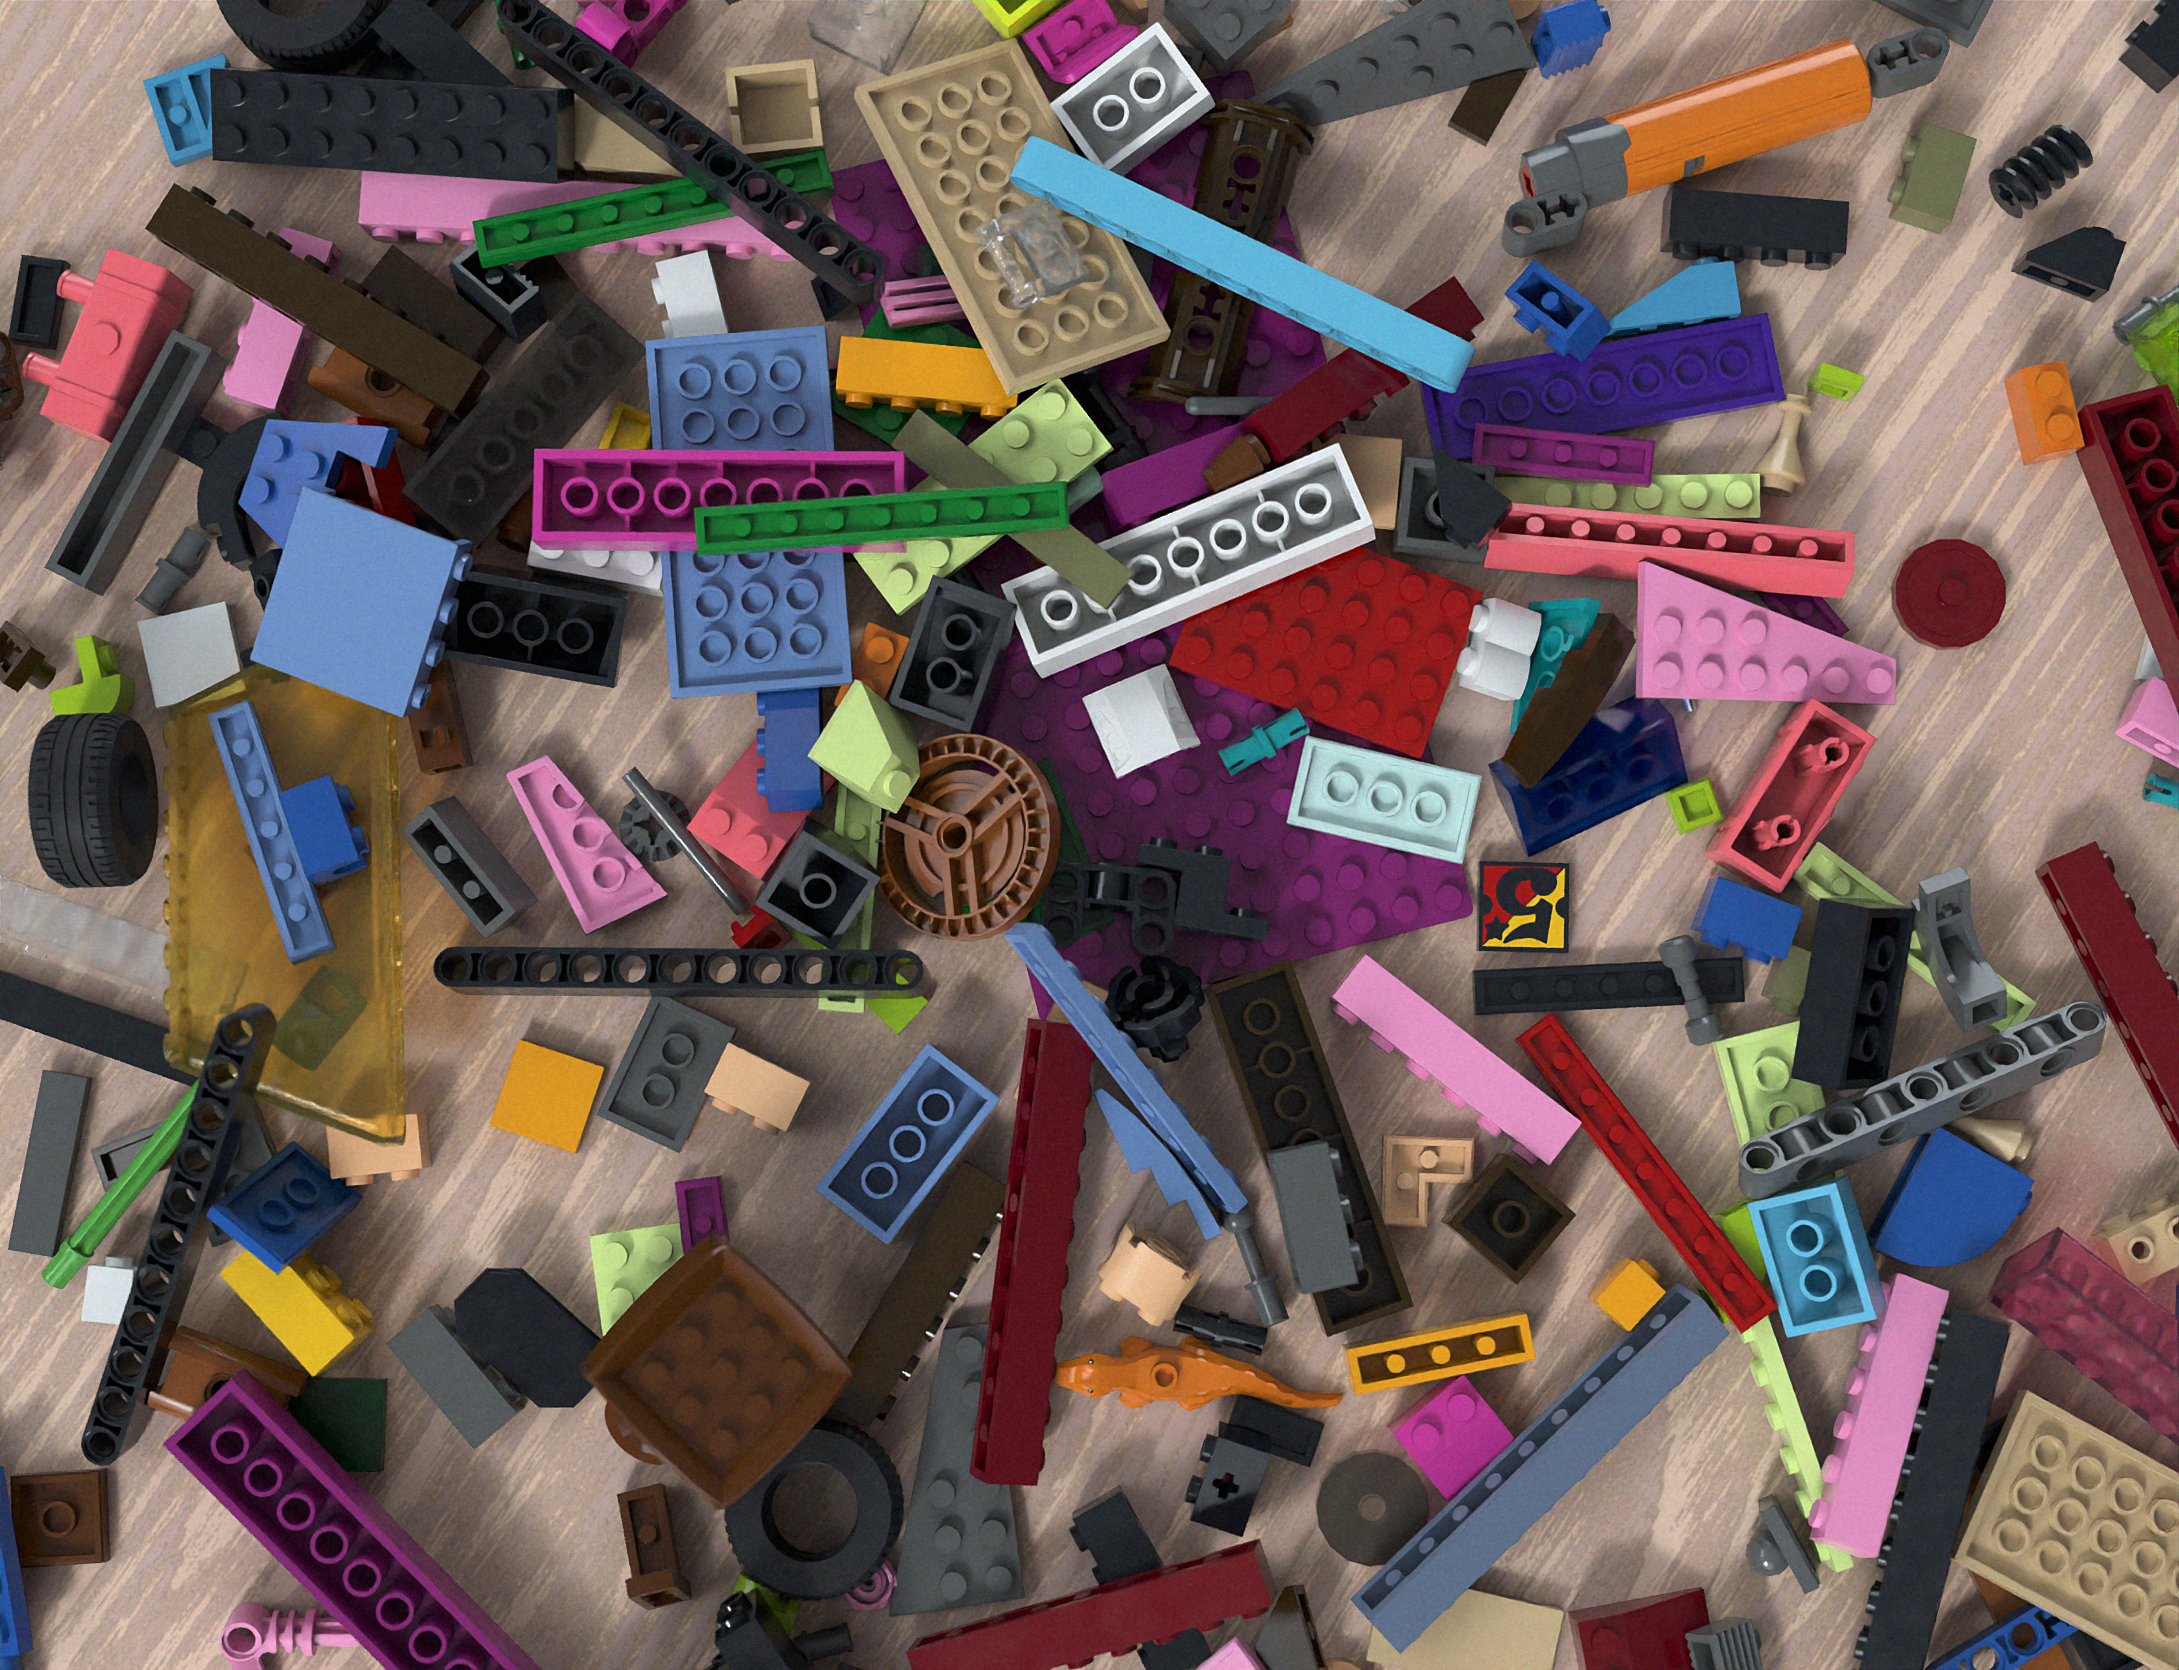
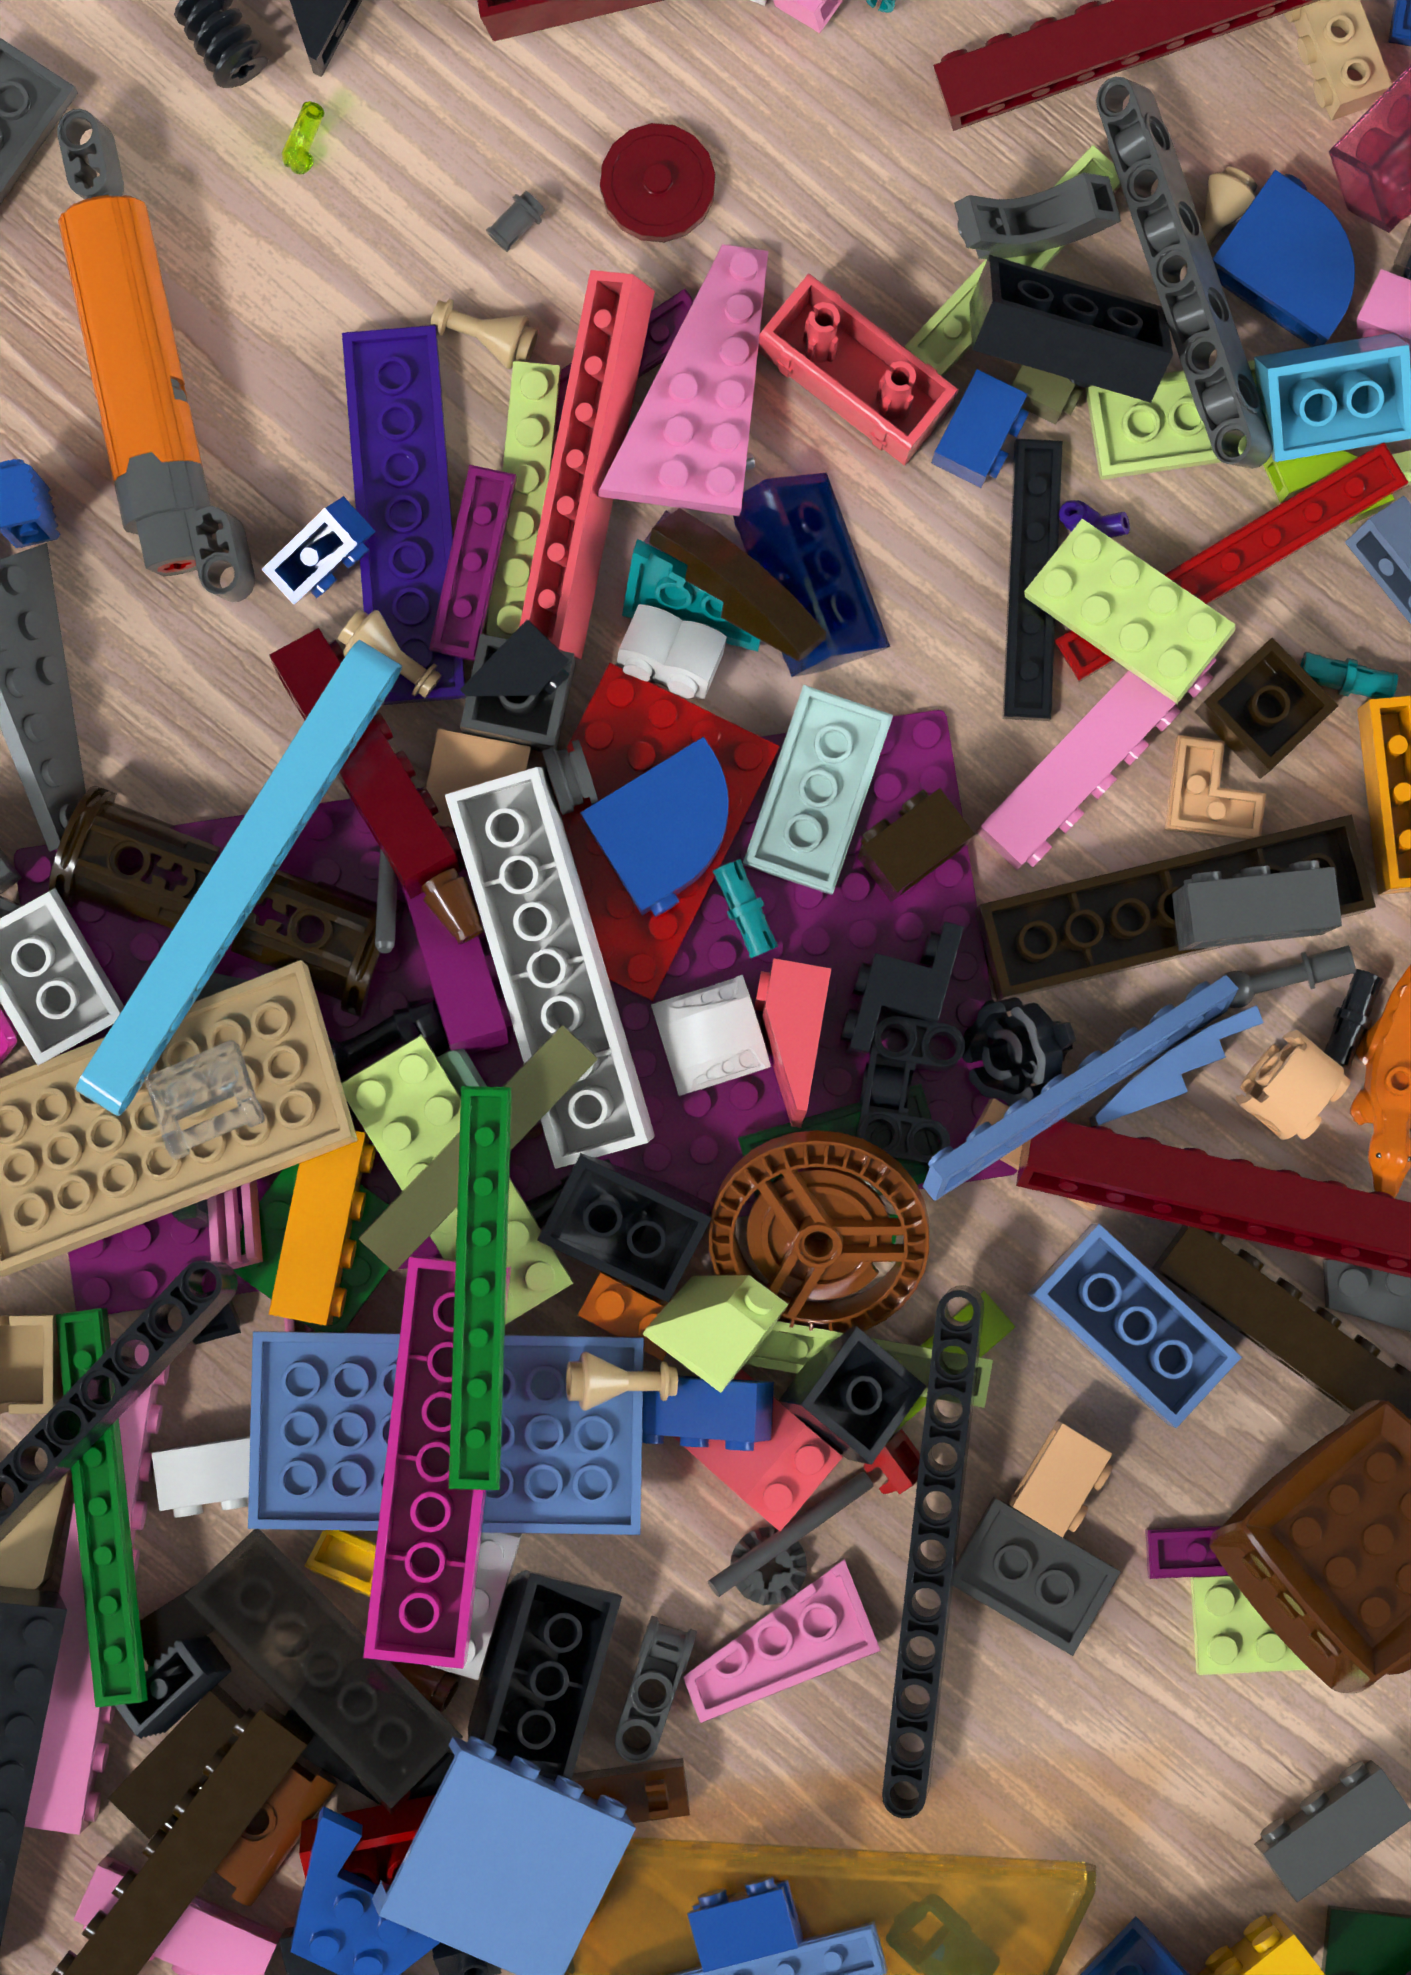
camera: 85 degrees left, 0 degrees up
(361, 1159) = (1104, 1915): light nougat brick -> none
(469, 866) = (796, 1771): dark grey brick -> none
(526, 1336) = (1299, 1750): black shield -> none
(548, 1096) = (1046, 1706): light orange tile -> none
(562, 734) = (660, 1663): none -> dark grey piece
(808, 641) = (597, 1381): none -> tan piece
(1169, 793) = (791, 1024): none -> coral slope
(1331, 654) = (663, 826): none -> blue brick
(1341, 890) = (915, 843): none -> dark brown piece
(1368, 561) = (570, 777): none -> dark grey wheel
(1483, 370) = (375, 632): none -> tan piece
(1485, 106) = (83, 602): dark brown tile -> none
(1522, 907) = (942, 658): tile -> none
(1548, 1297) = (1349, 676): none -> teal pin
(1587, 1077) = (1129, 611): none -> yellowish green plate
(1628, 1292) = (1351, 594): light orange brick -> none
(1666, 1037) = (1111, 524): none -> dark purple arm
(1689, 299) = (318, 408): dark azure slope -> none
(1693, 806) = (853, 470): lime tile -> none
(1703, 1024) = (1009, 502): dark grey piece -> none
(1754, 228) = (248, 336): black brick -> none
(1835, 381) = (422, 271): lime tile -> none
(1895, 464) = (516, 220): none -> dark grey pin
(1931, 178) = (215, 146): olive brick -> none
(1945, 256) = (297, 147): none -> clear neon green arm
(2044, 412) = (478, 61): orange brick -> none

